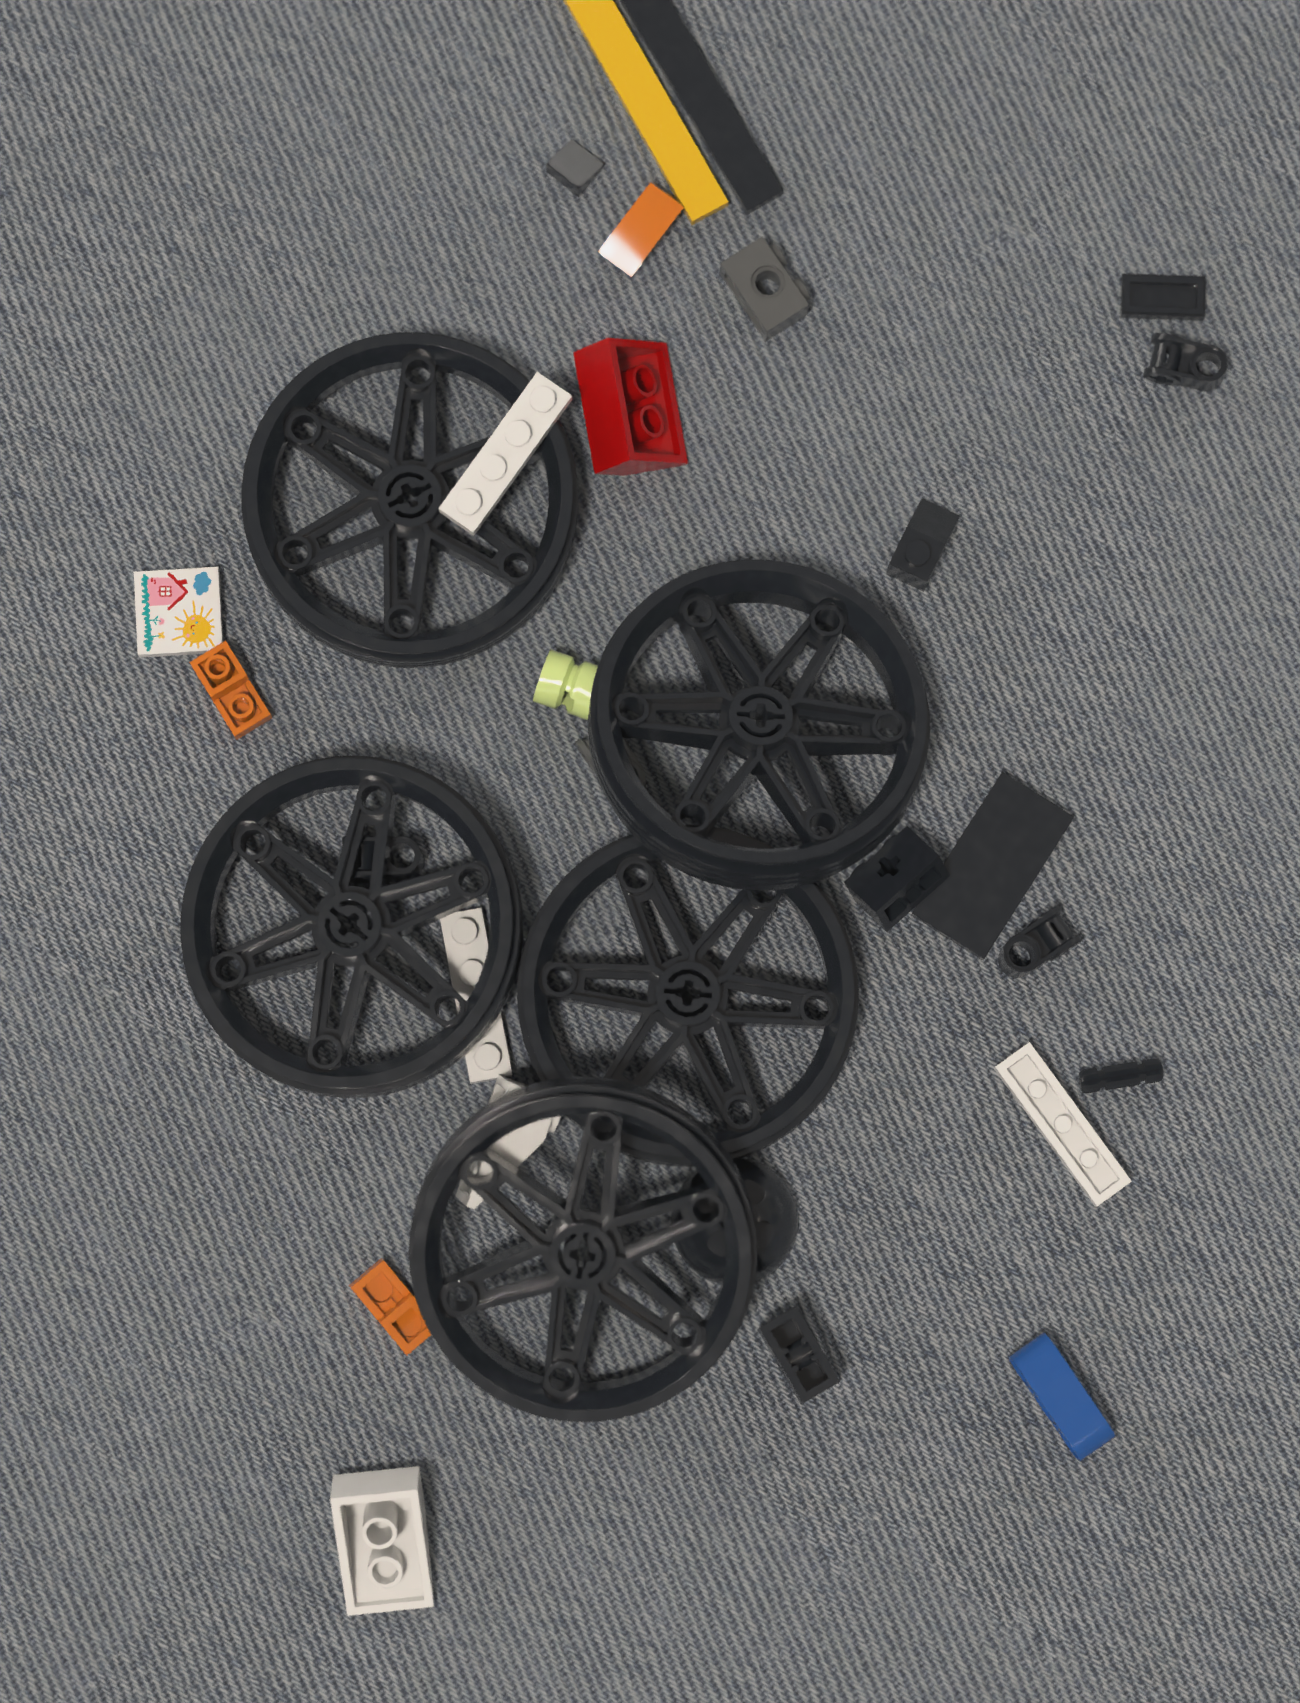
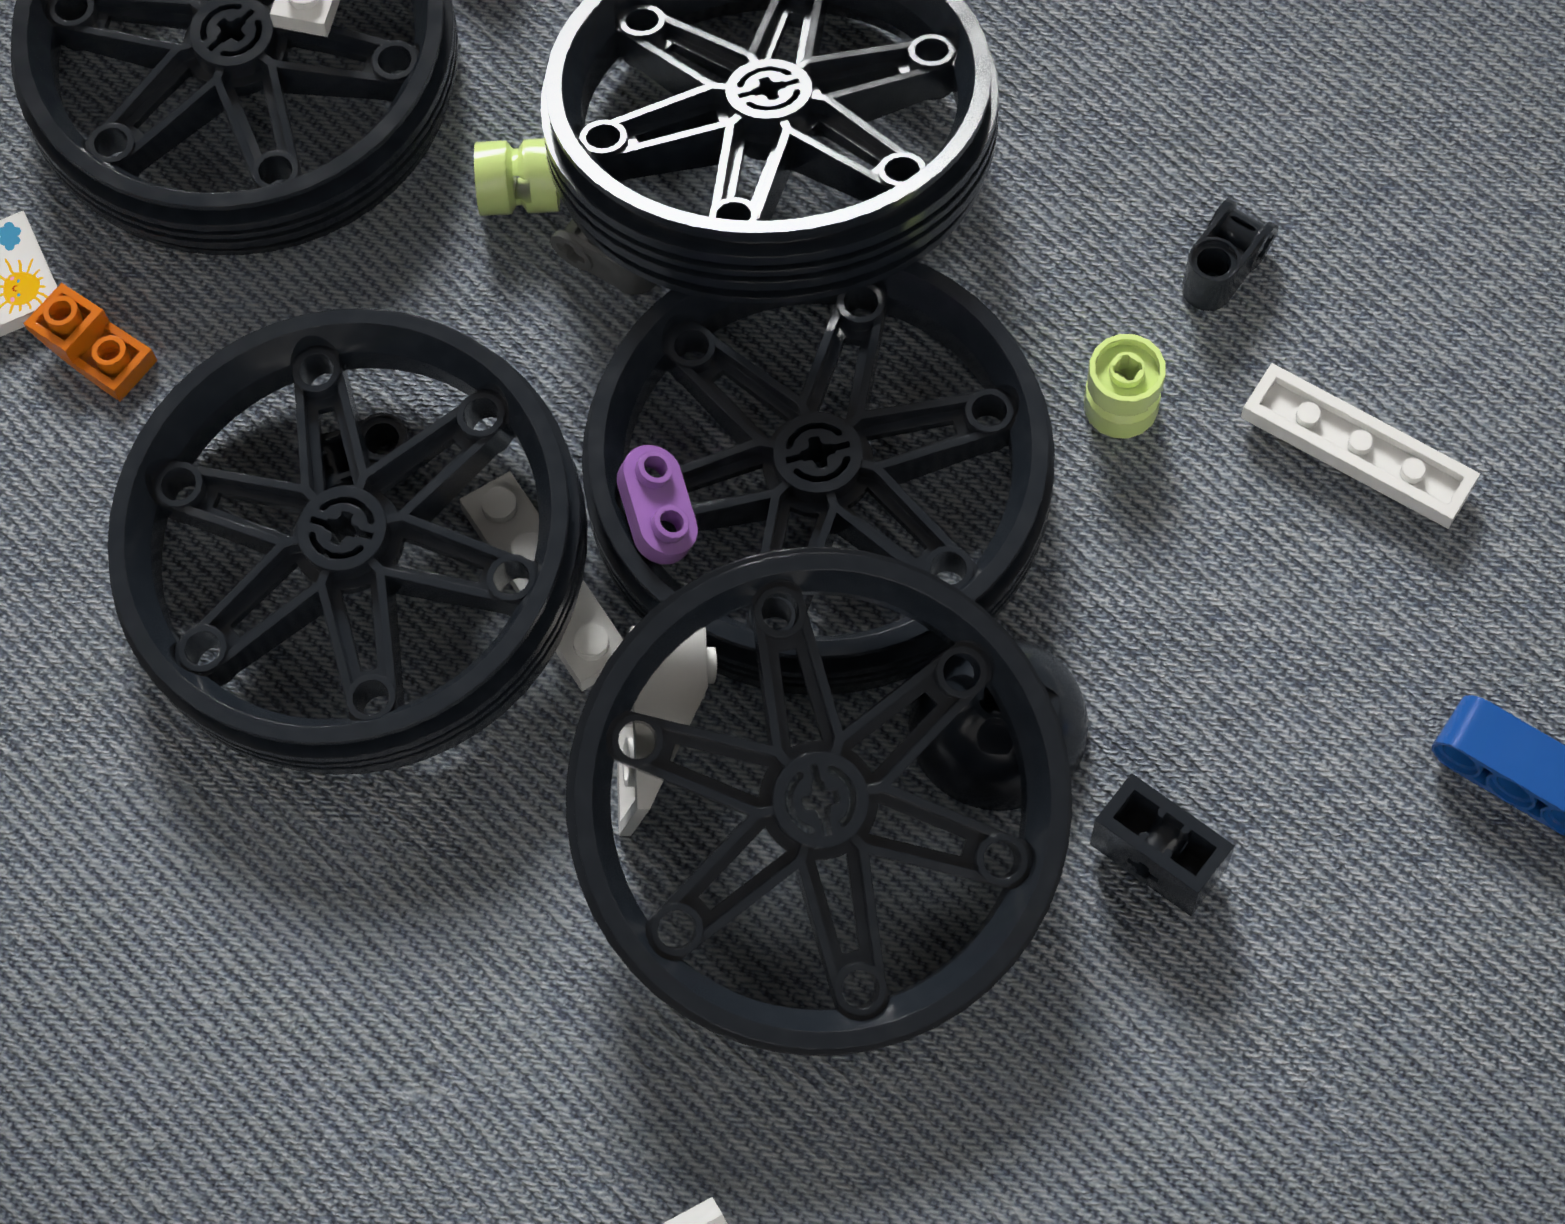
camera: 15 degrees left, 15 degrees down
(391, 1305) = (593, 1004): orange slope -> none
(560, 993) = (654, 500): none -> medium lavender plate
(896, 878) = (1018, 239): black brick -> none
(920, 1019) = (1124, 385): none -> yellowish green wheel
(993, 865) = (1127, 195): black tile -> none
(1121, 1075) = (1401, 365): black axle -> none

